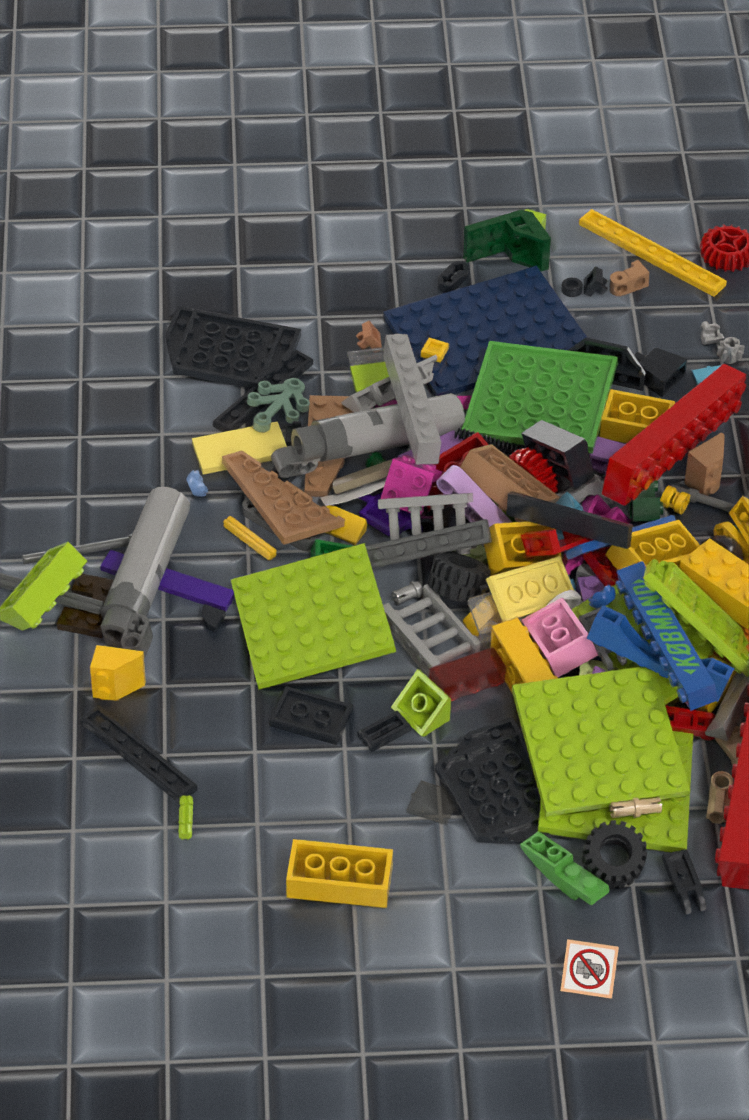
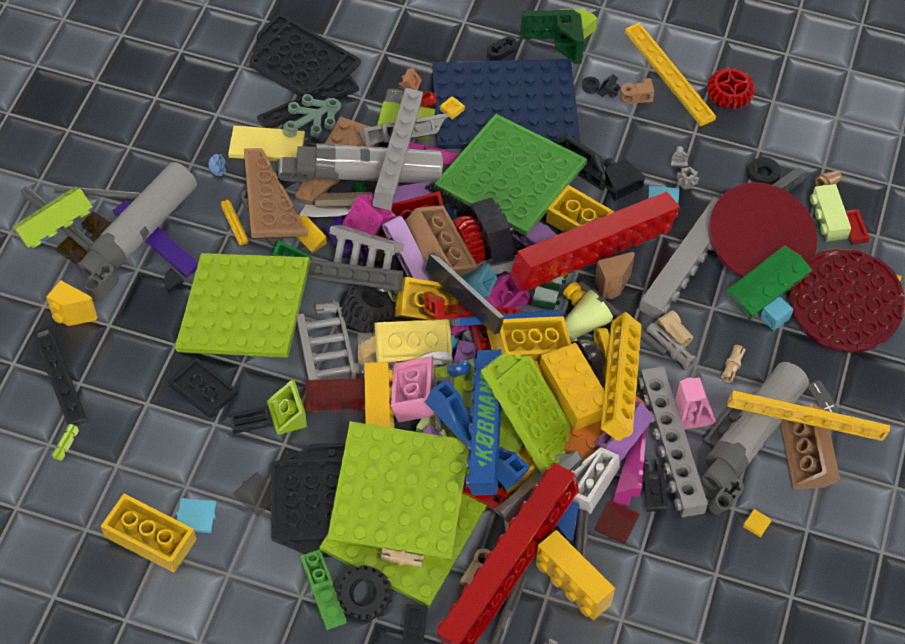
camera: 20 degrees right, 10 degrees up
(379, 837) = (197, 514): none -> medium azure piece
(703, 510) = (587, 316): none -> yellowish green cone

